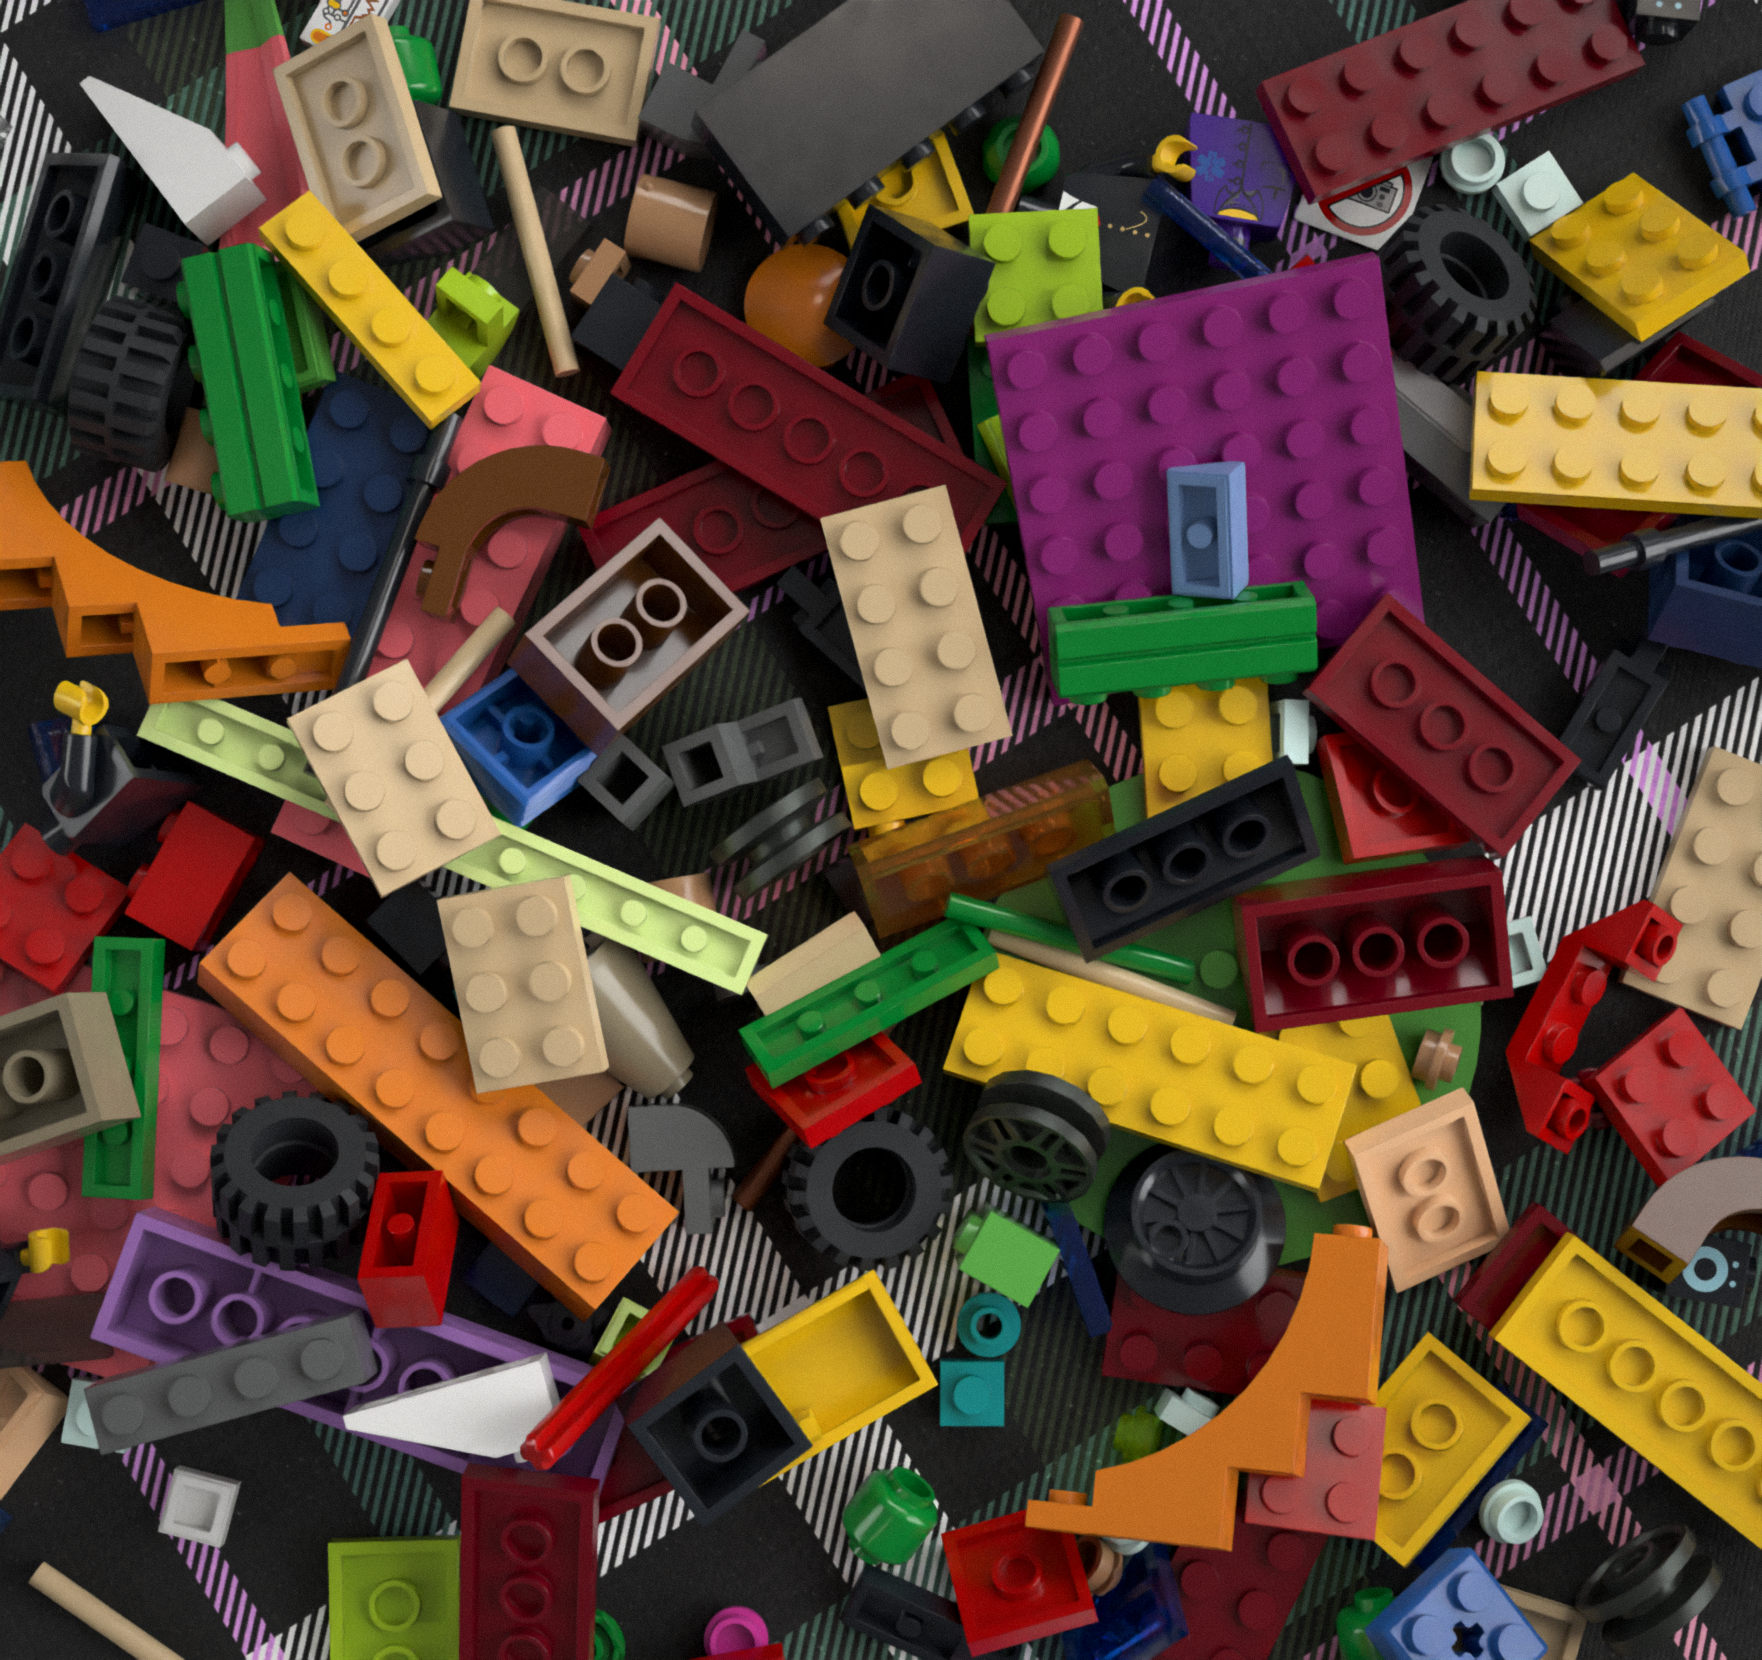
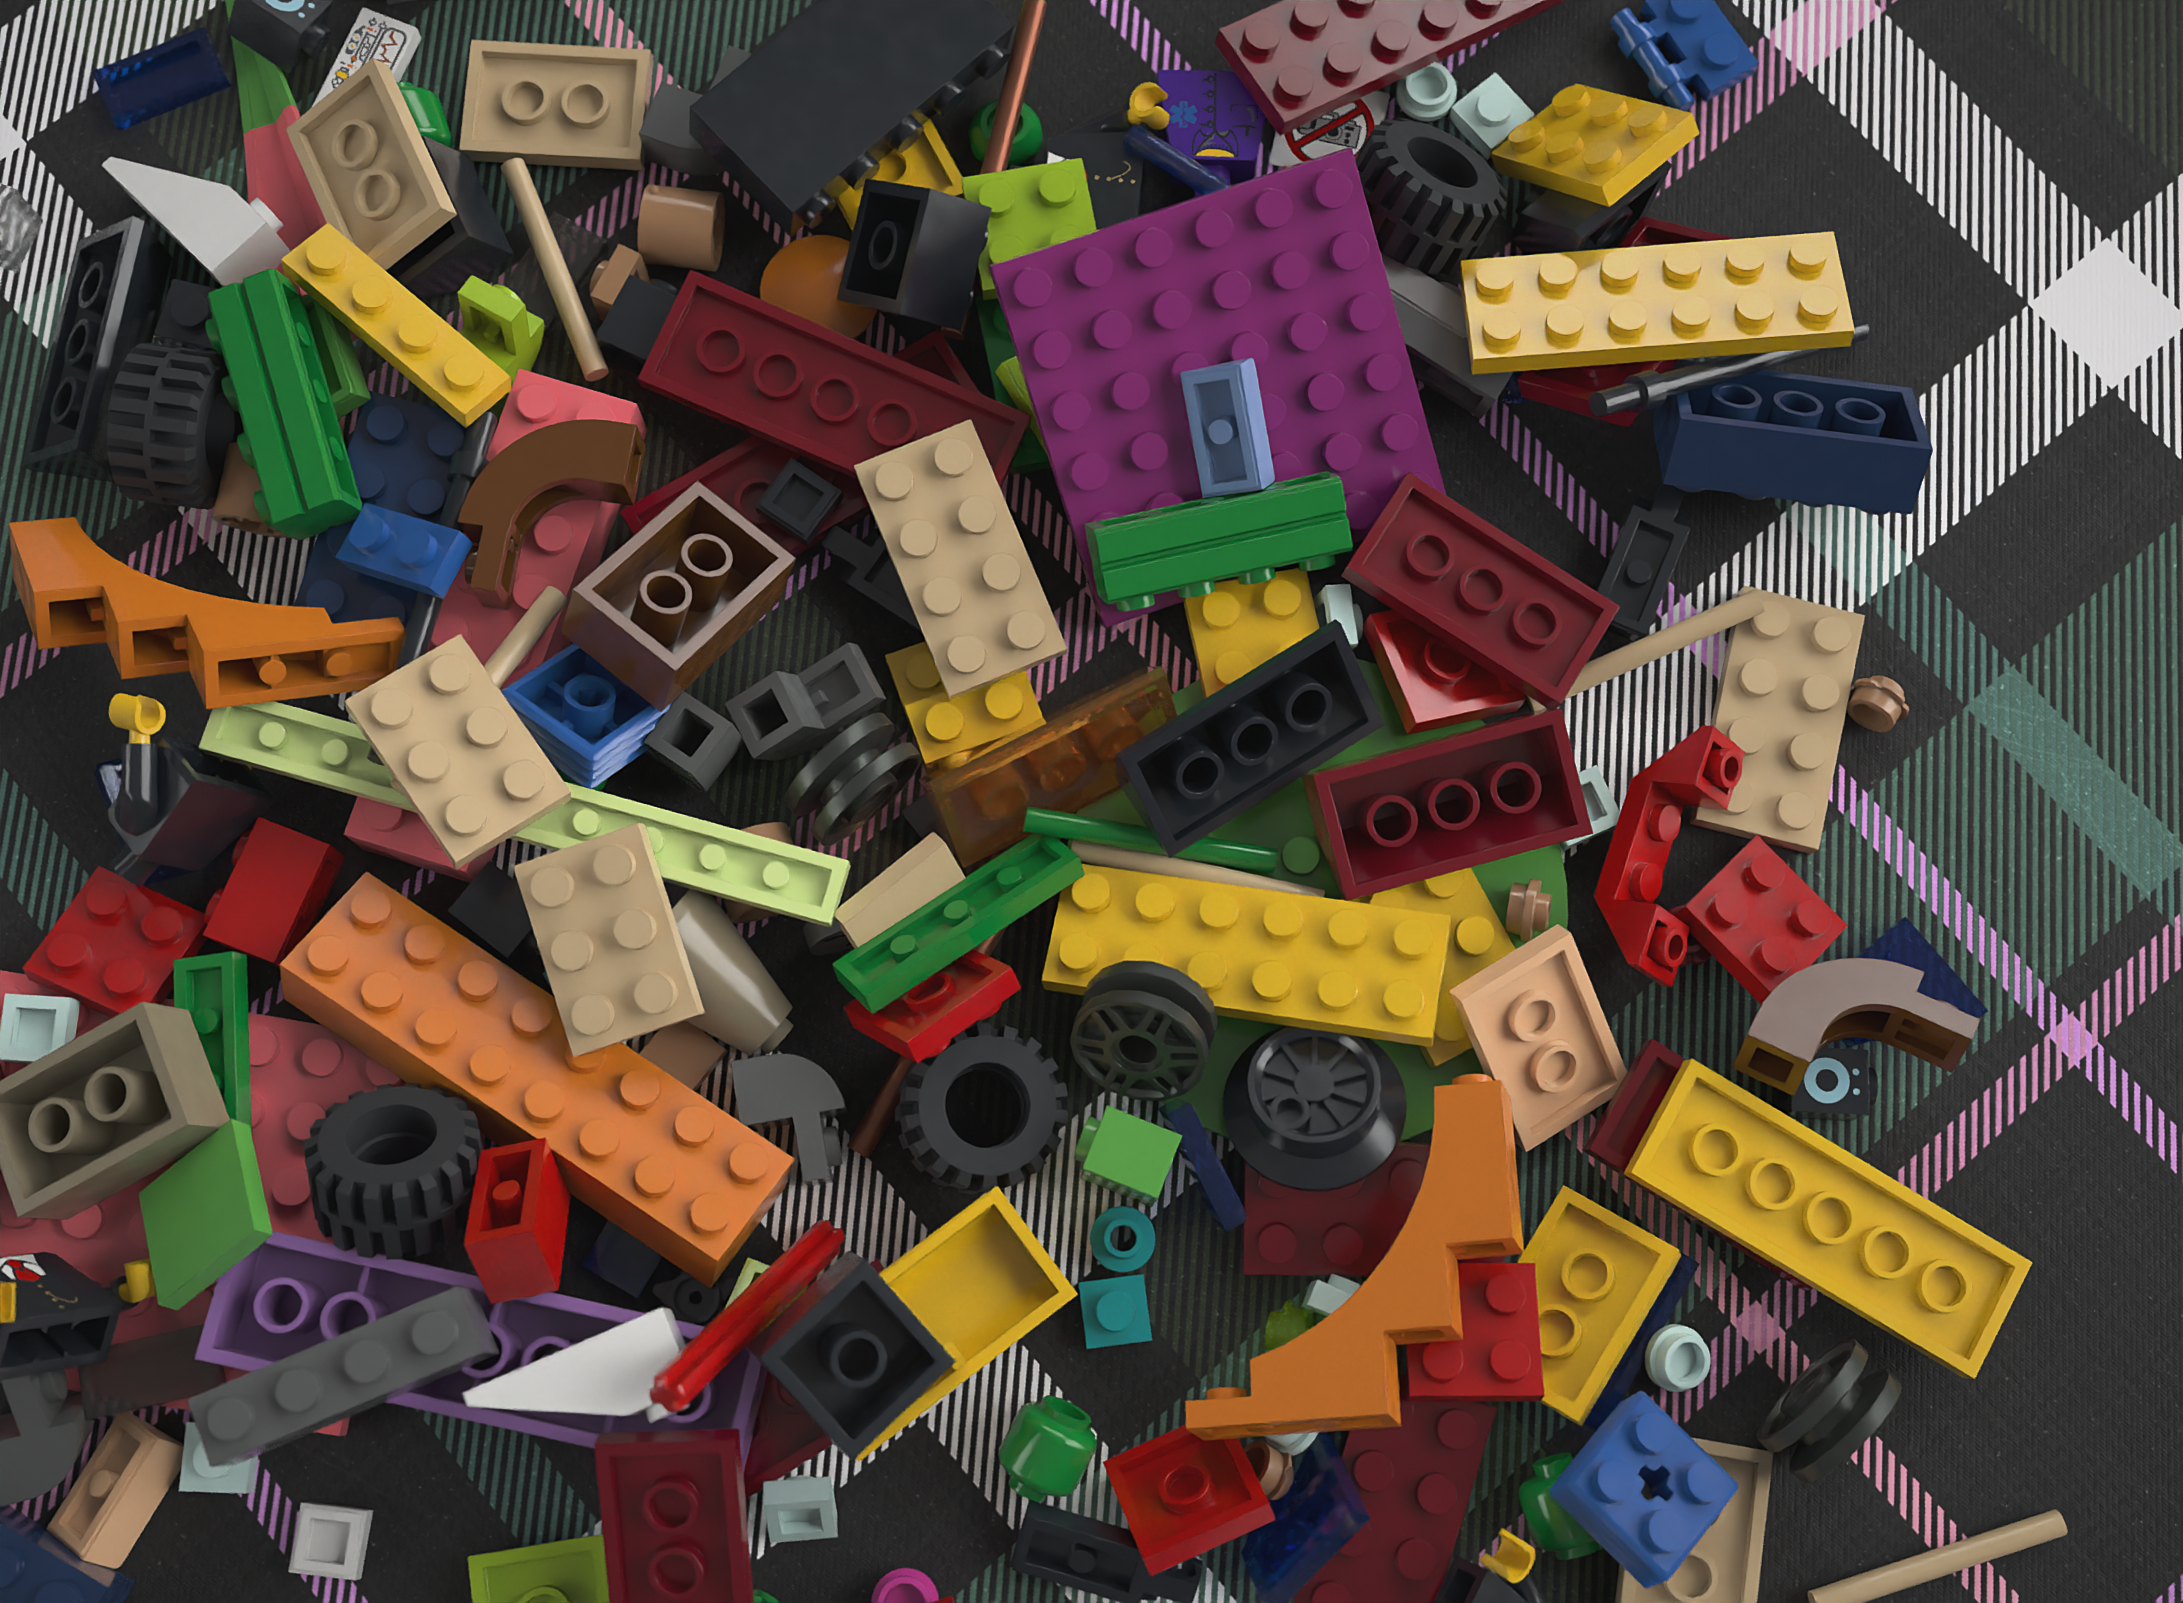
camera: 10 degrees left, 10 degrees down
(109, 1200) = (204, 1214): none -> bright green tile
(357, 556) = (404, 550): none -> blue plate
(647, 1539) = (800, 1508): none -> light aqua plate
(759, 539) = (799, 502): none -> black tile
(1629, 795) = (1664, 642): none -> tan bar

